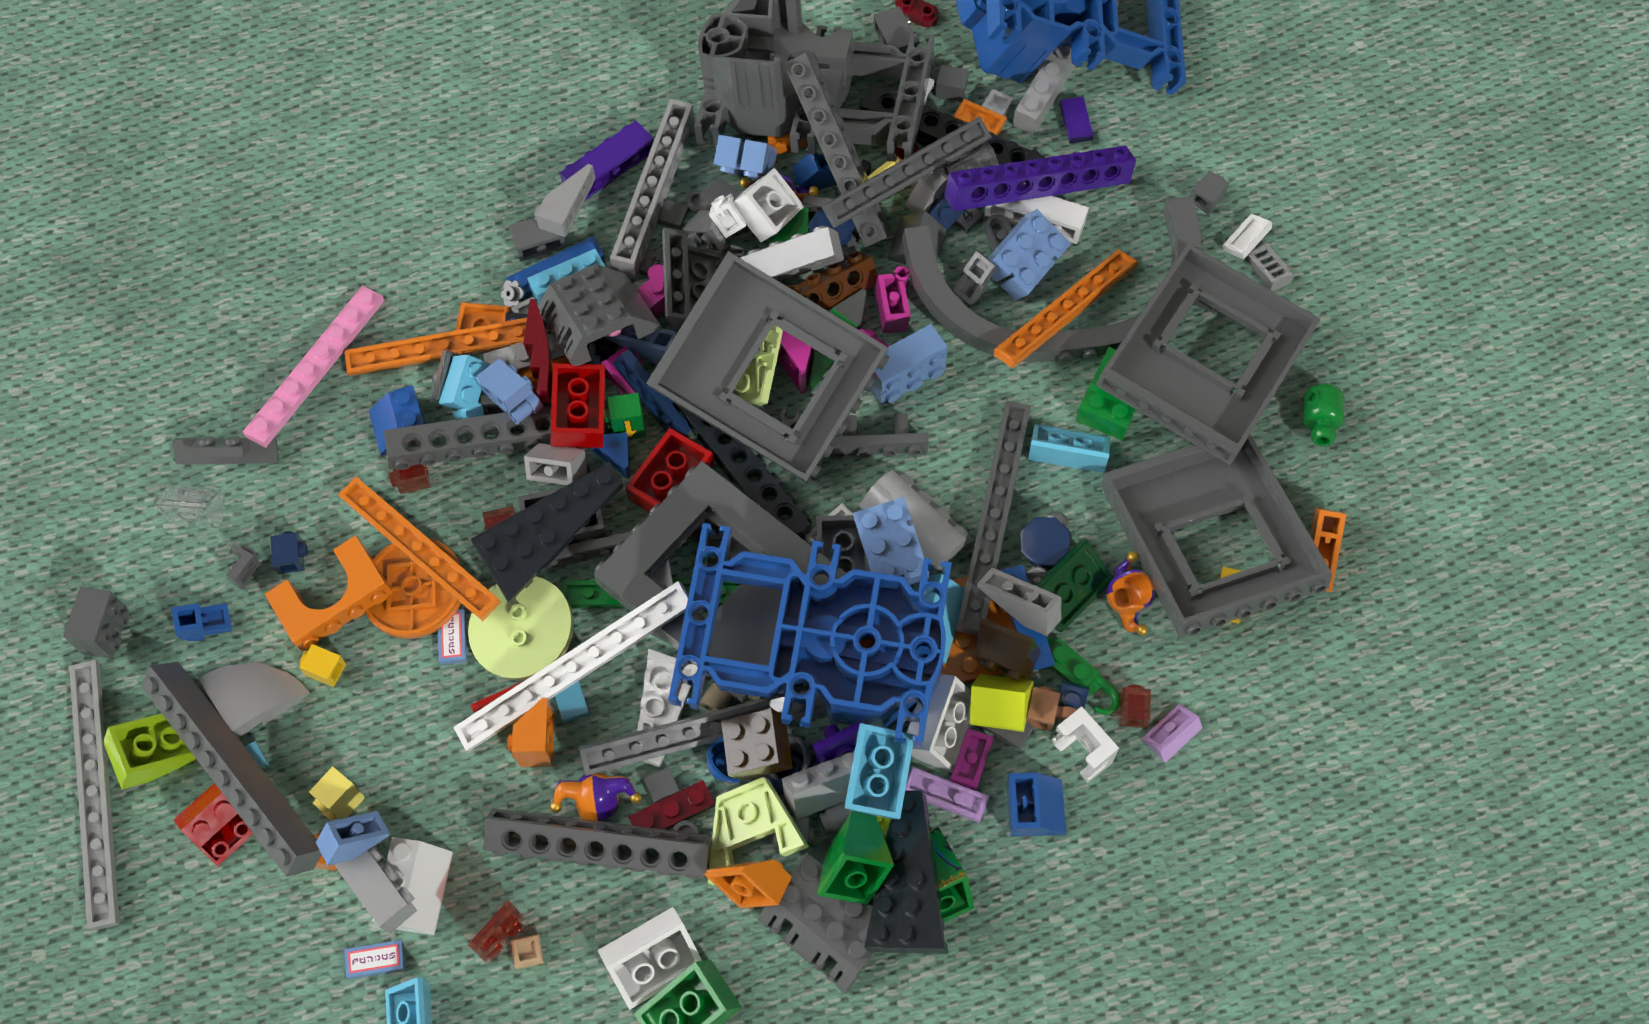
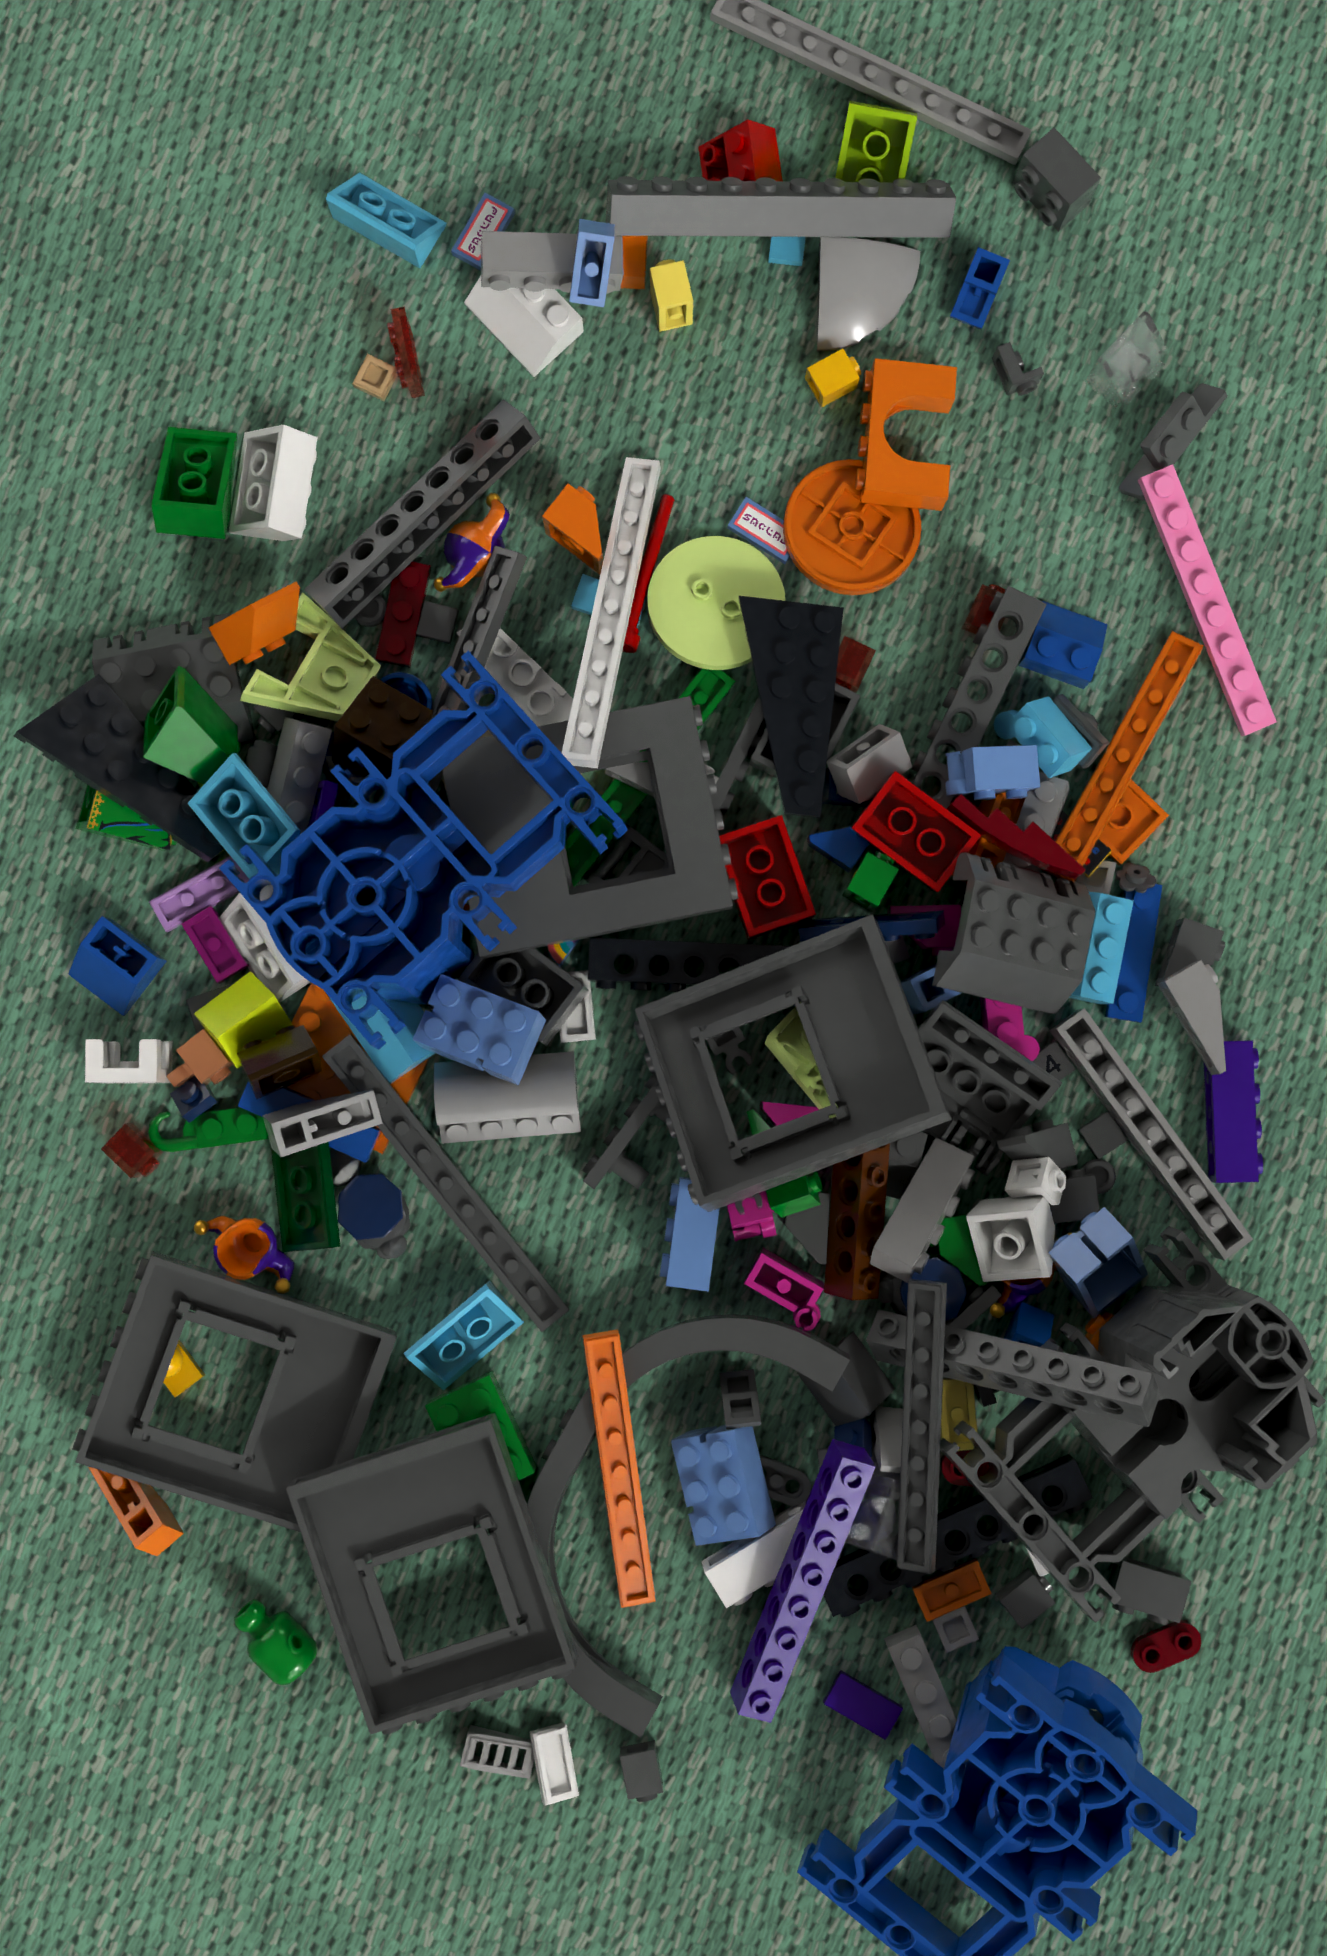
camera: 130 degrees right, 20 degrees up
(288, 552) = (993, 427): dark blue brick -> none
(420, 549) = (885, 555): orange plate -> none
(1172, 732) = (82, 1169): lavender slope -> none

